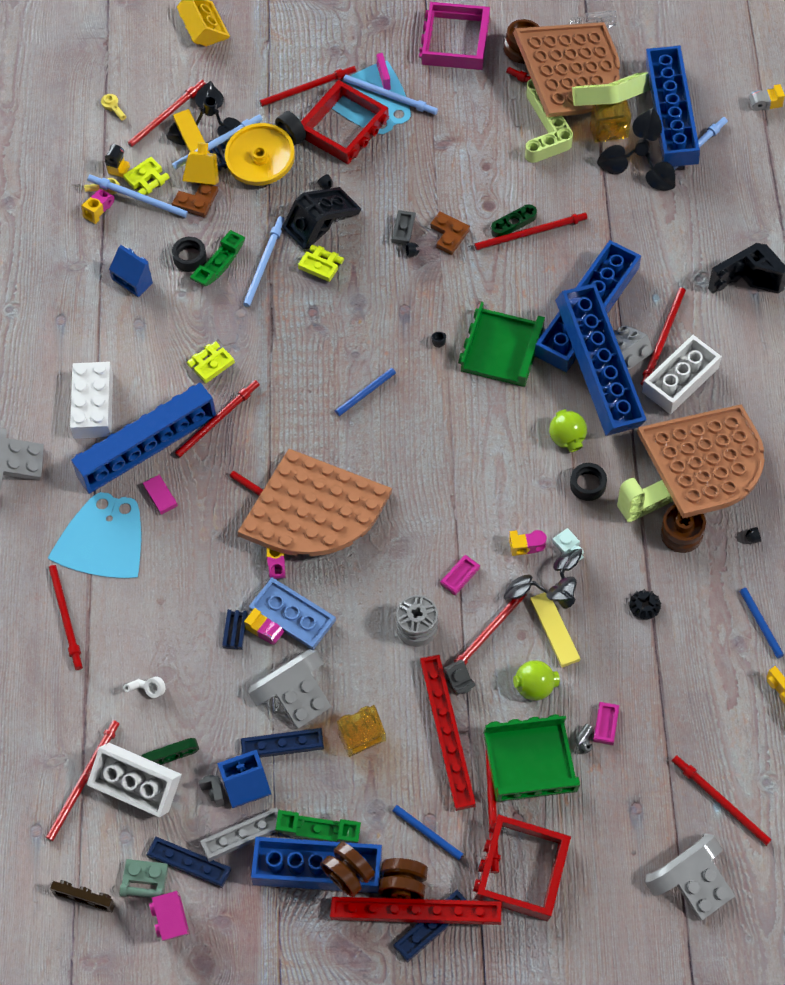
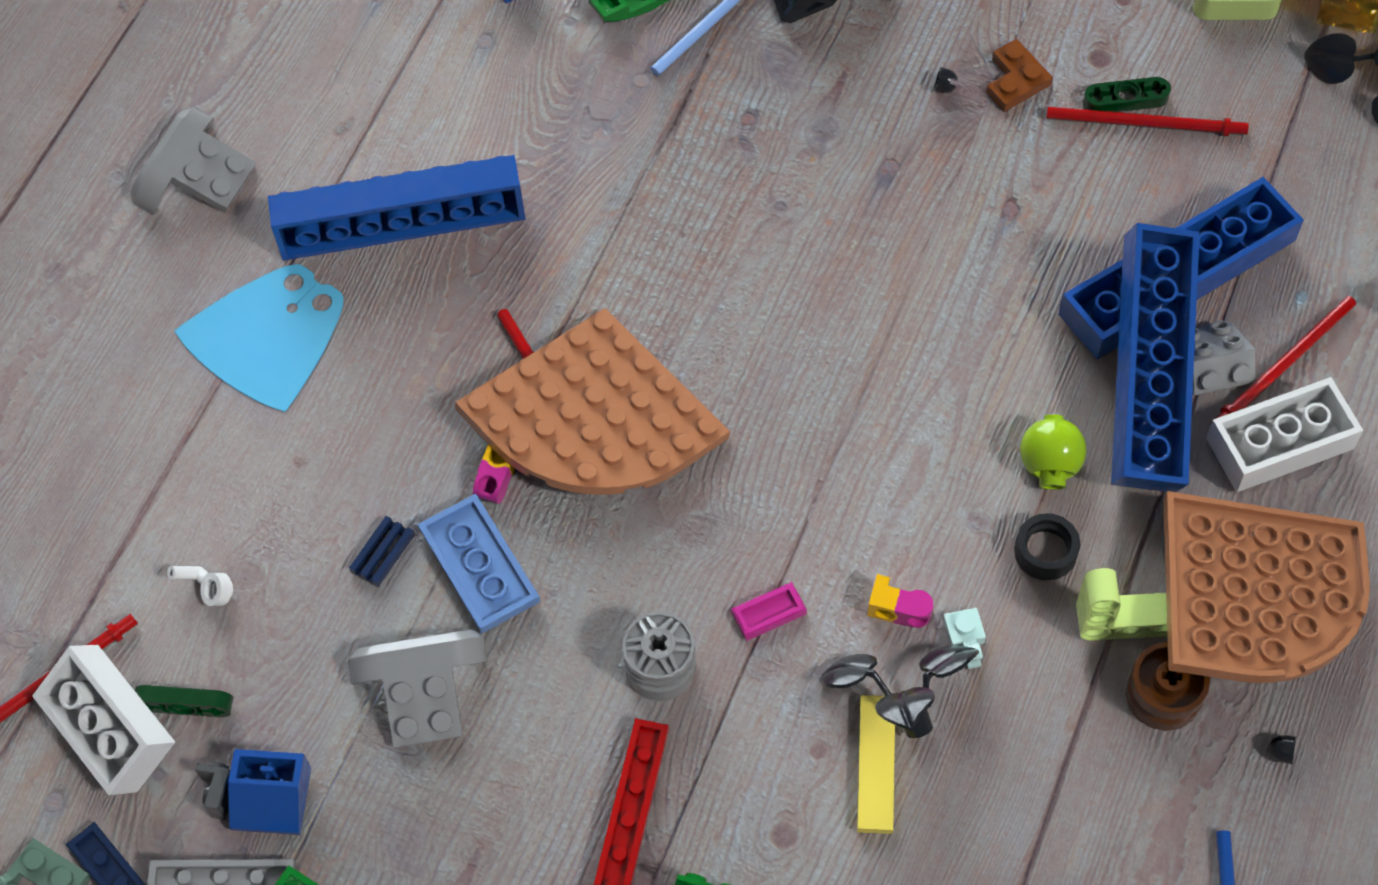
camera: 25 degrees right, 0 degrees up
(73, 649) = (134, 481): red bar -> none
(91, 400) = (355, 123): white brick -> none
(160, 494) = (381, 301): dark pink tile -> none
(213, 365) = (560, 140): neon yellow plate -> none
(242, 395) = (579, 202): red bar -> none
(263, 627) = (423, 565): leg -> none
(284, 743) = (361, 761): dark blue tile -> none
(318, 266) = (790, 54): neon yellow plate -> none
(361, 730) = (482, 794): clear yellow slope -> none
(363, 393) = (765, 268): blue bar -> none
(403, 227) = (948, 42): dark grey plate -> none
(438, 339) = (918, 230): black hinge -> none
(459, 677) = (681, 776): dark grey bracket -> none
(489, 630) = (701, 750): red bar -> none
(501, 346) = (1010, 278): green panel -> none
(535, 680) = (800, 835): lime brick -> none
(649, 611) = (1043, 801): black gear -> none

